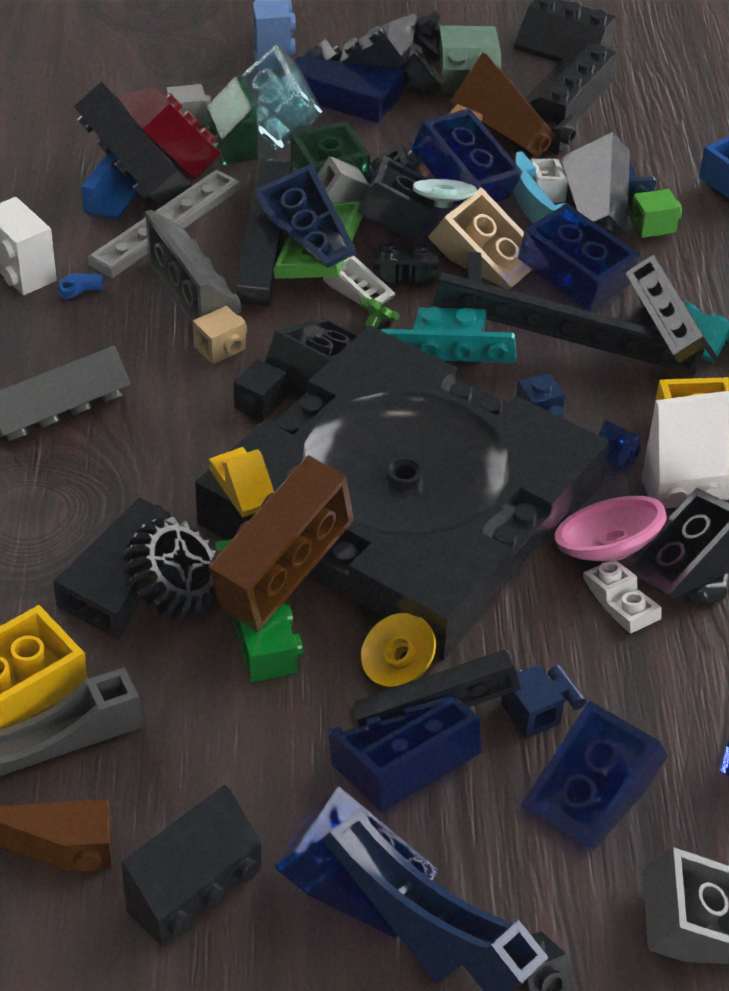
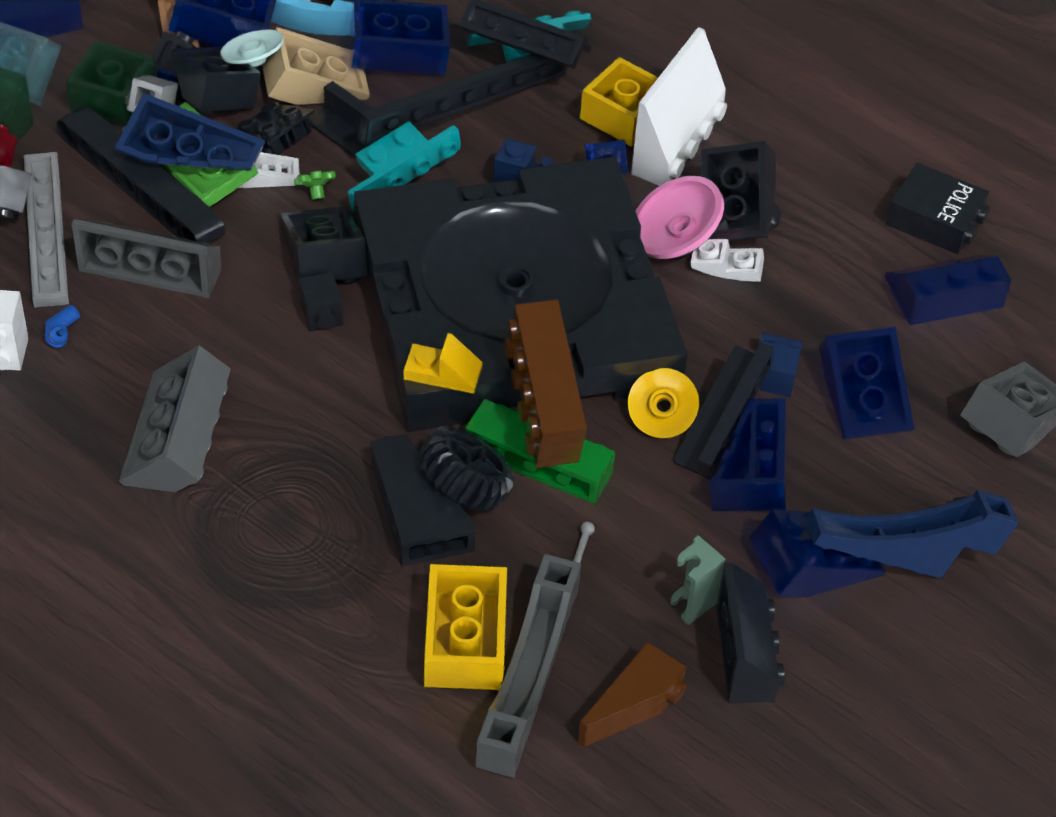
camera: 50 degrees left, 5 degrees up
(150, 715) = (587, 529): none -> light grey hinge
(201, 783) = (701, 579): none -> sand green hinge
(219, 334) = (232, 283): tan brick -> none

